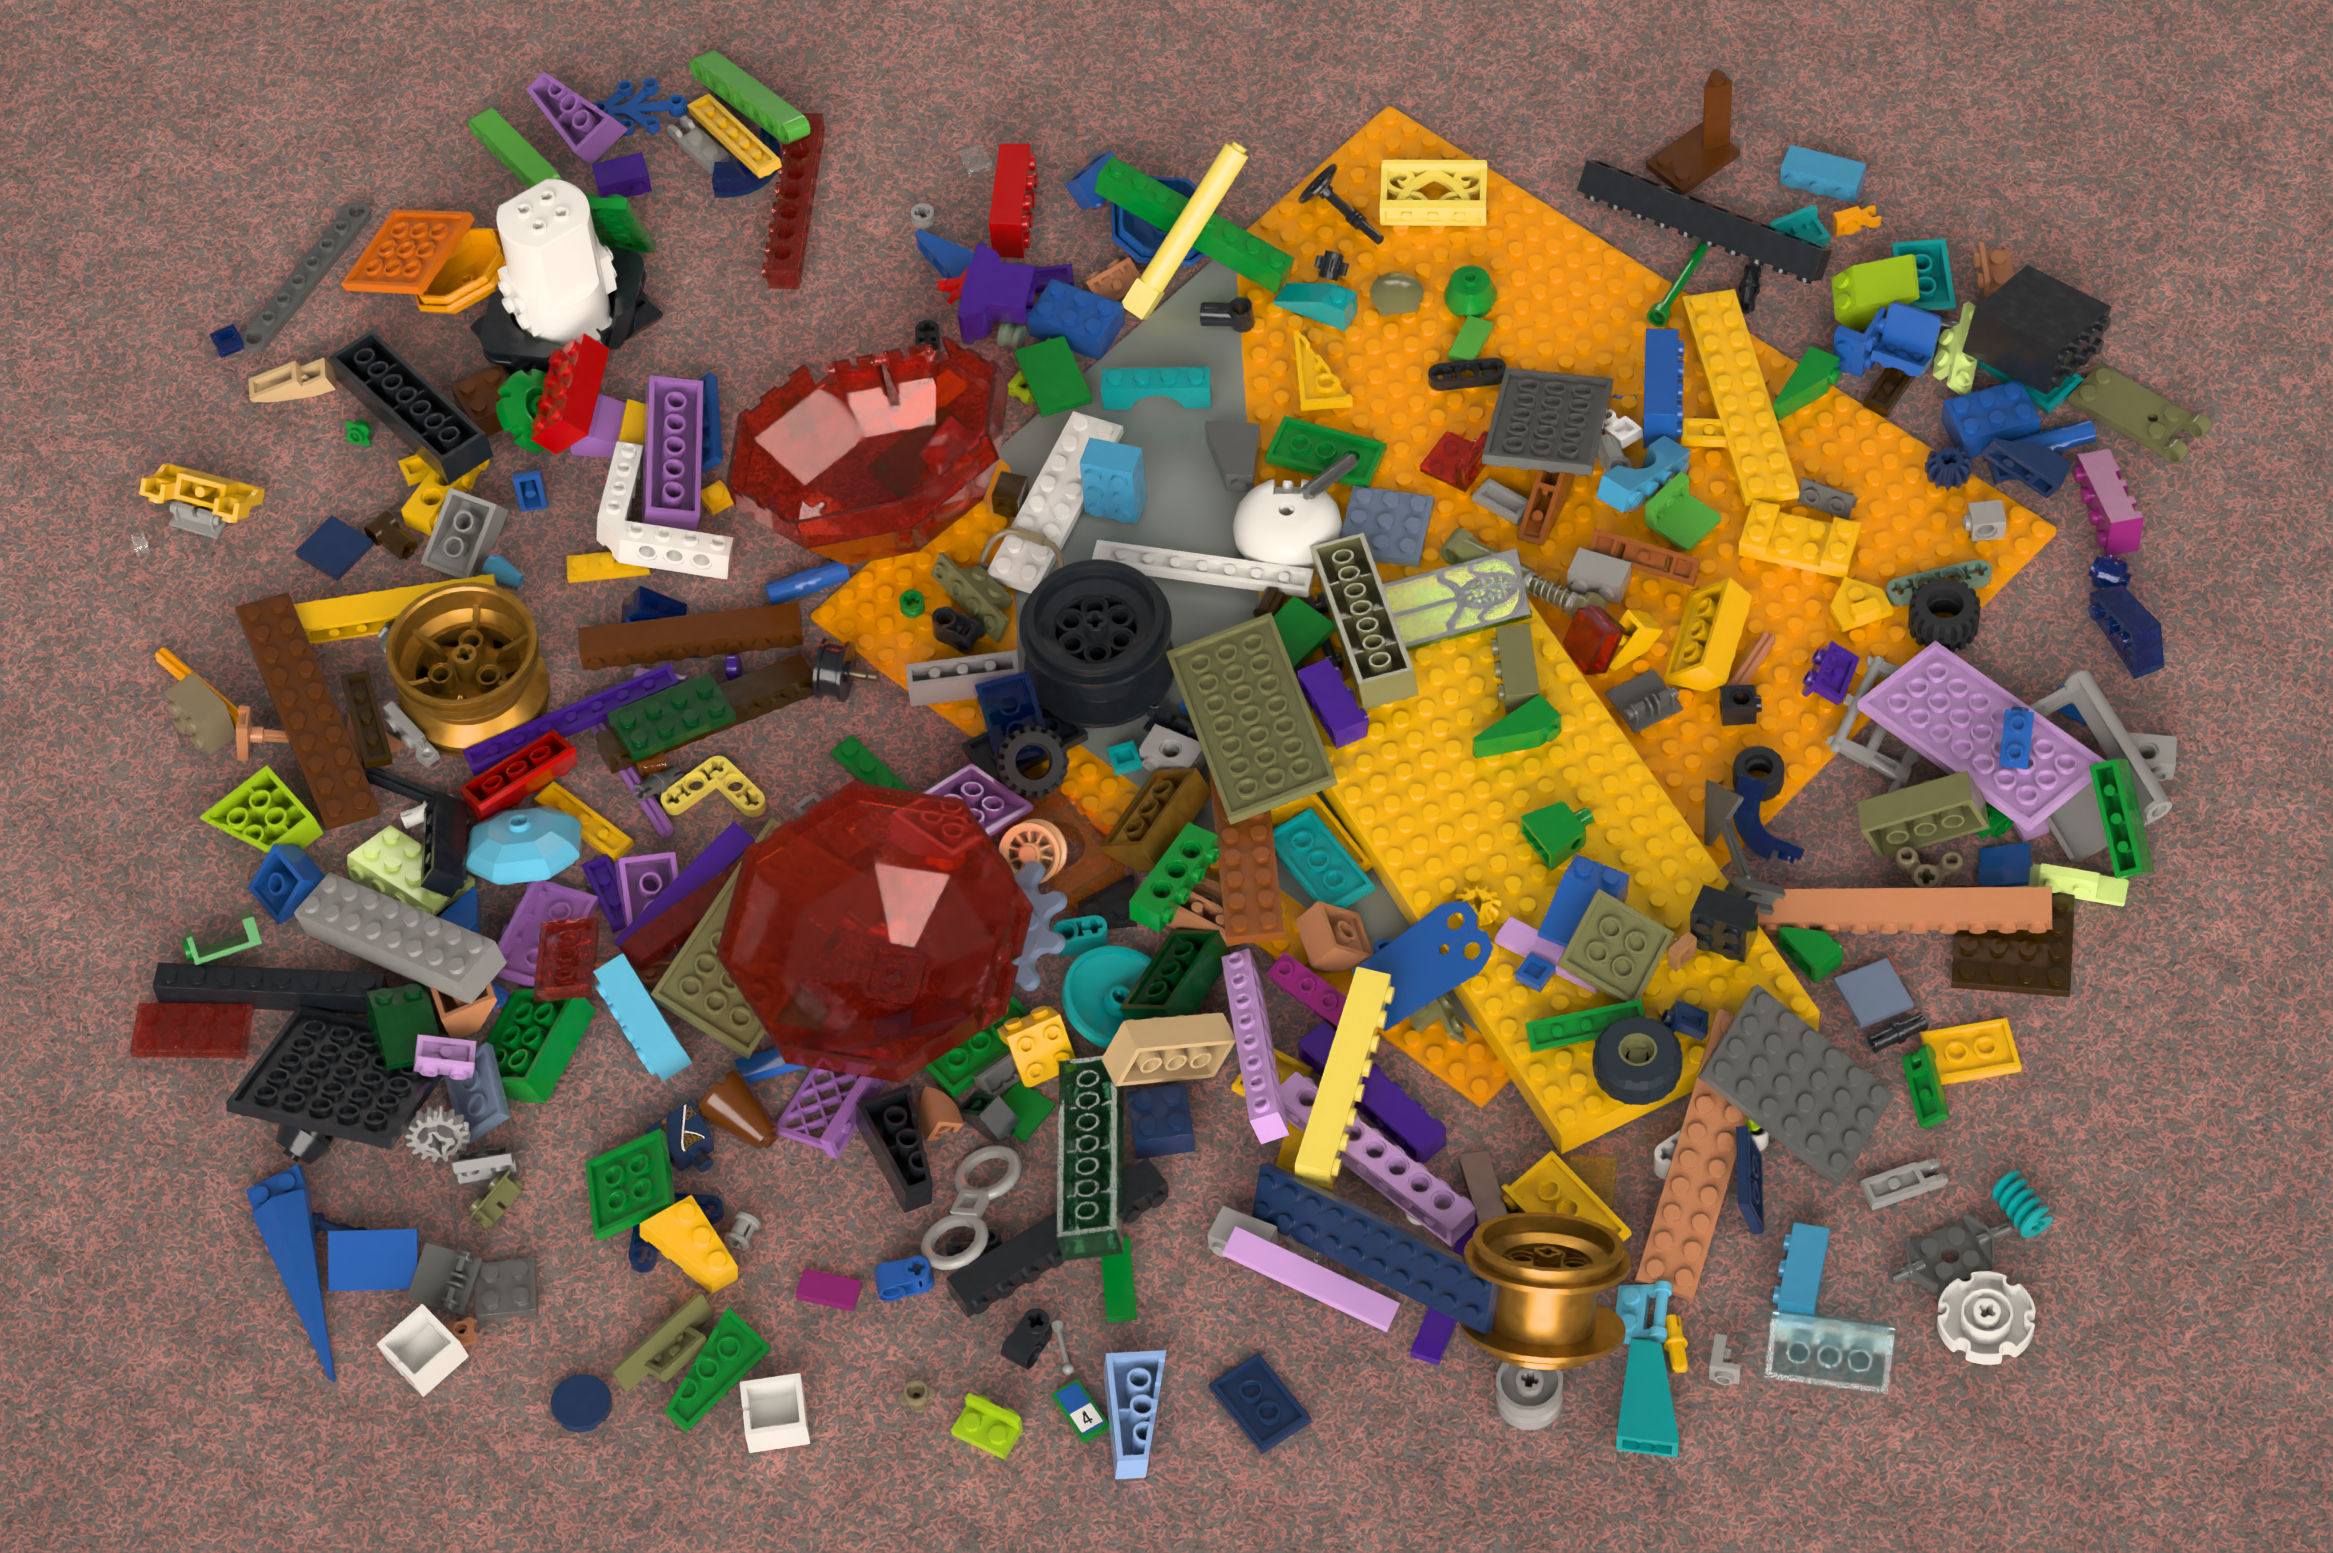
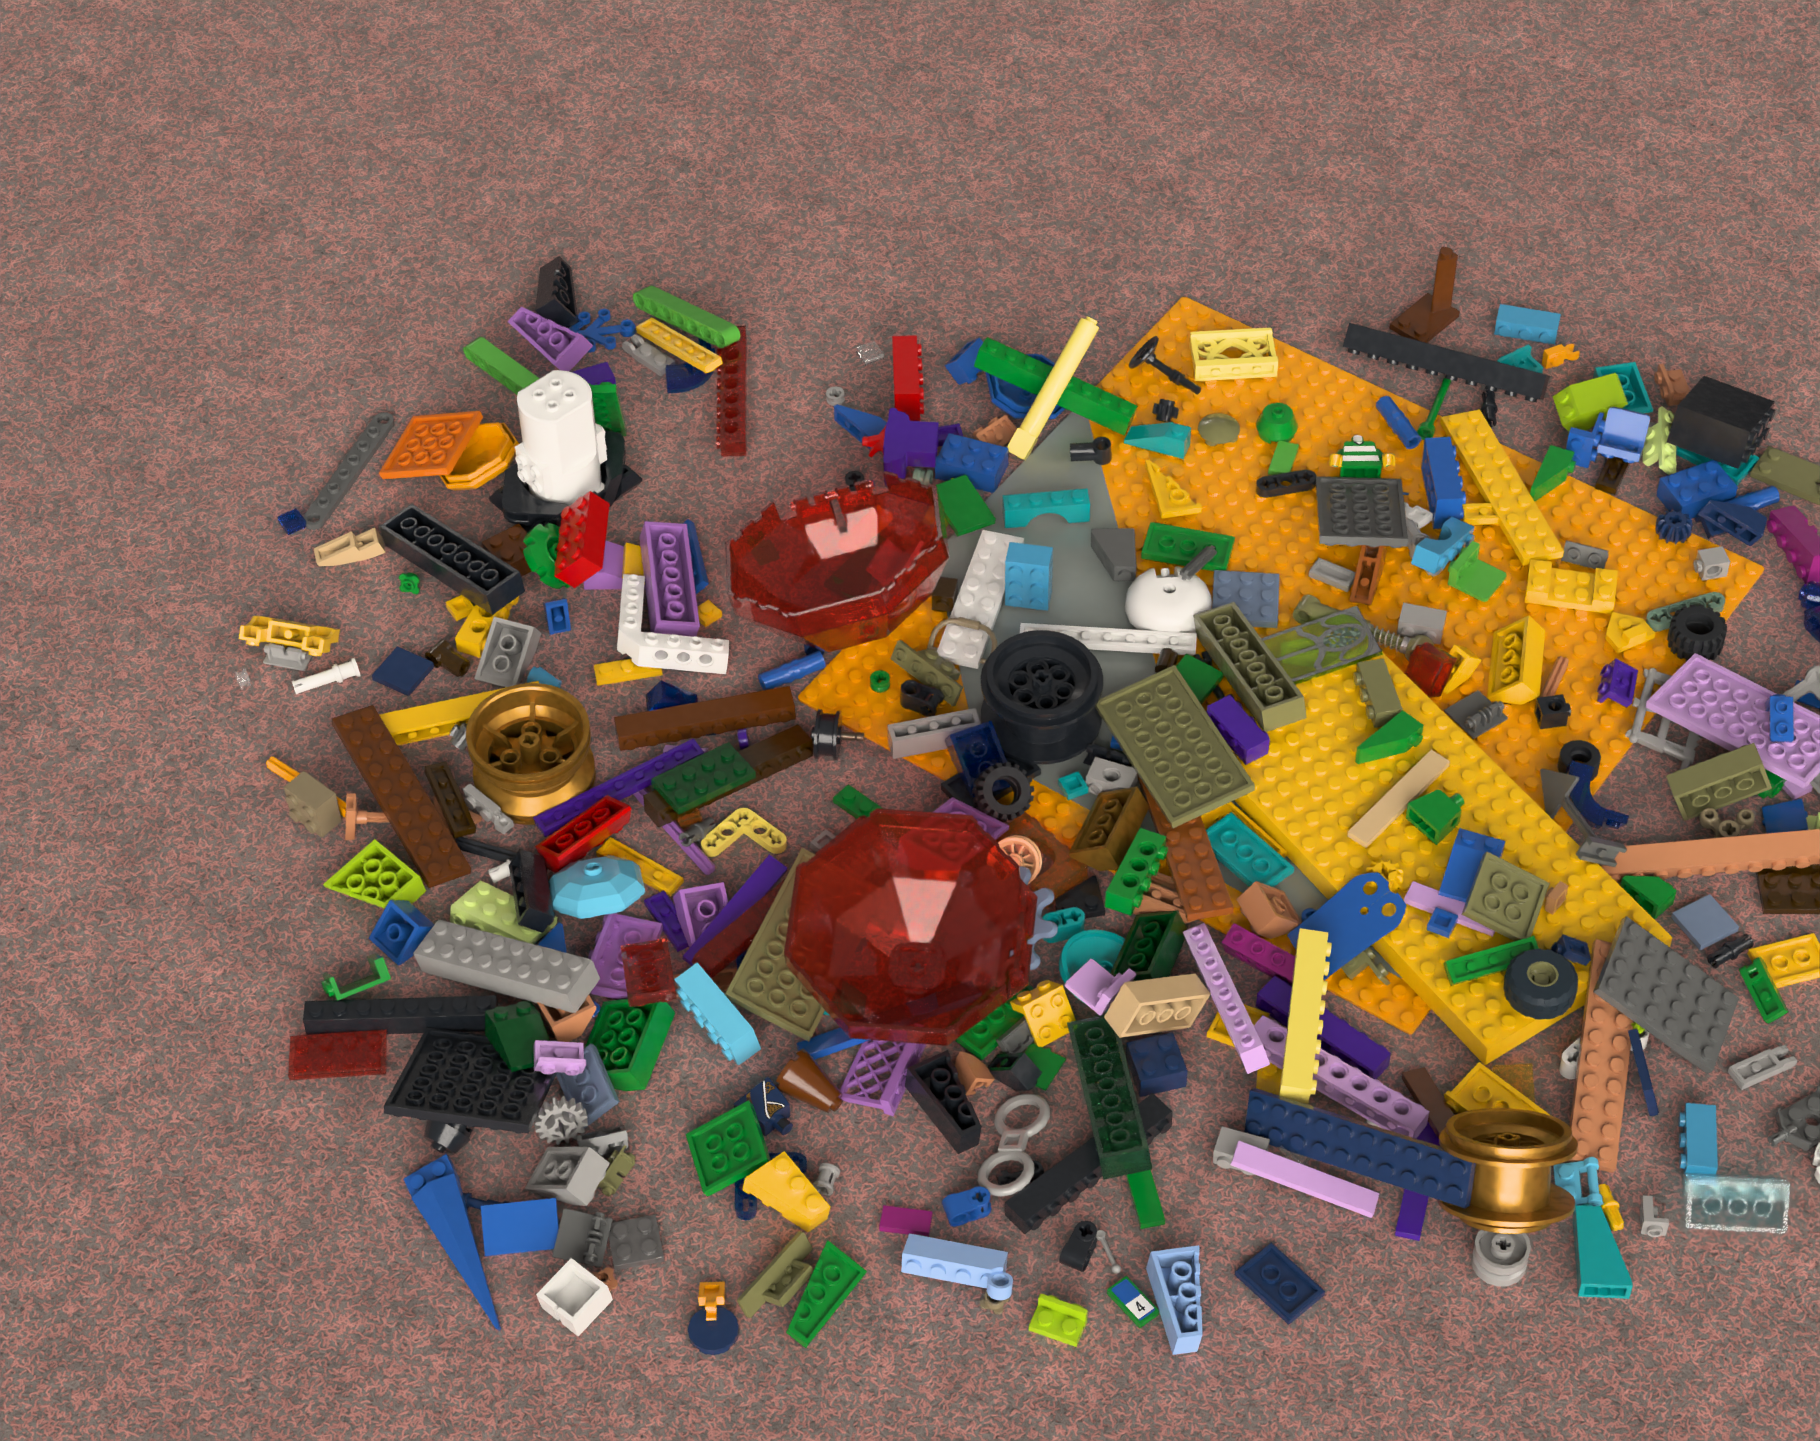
camera: 10 degrees left, 5 degrees down
(253, 545) = (337, 673): none -> white pin
(437, 1201) = (568, 1174): none -> light grey slope
(583, 1361) = (710, 1296): none -> light orange plate
(592, 56) = (556, 293): none -> black wedge
(774, 1412) = (880, 1323): white piece -> none
(879, 1348) = (958, 1264): none -> light blue hinge
(1099, 1017) = (1097, 986): none -> lavender bracket
(1455, 460) = (1293, 546): clear red bracket -> none
(1507, 812) = (1397, 799): none -> tan tile
(1564, 348) = (1361, 459): none -> torso
(1625, 300) = (1398, 422): none -> blue axle
(1647, 557) = (1458, 606): dark orange hinge -> none
(1724, 923) = (1588, 872): black brick -> none

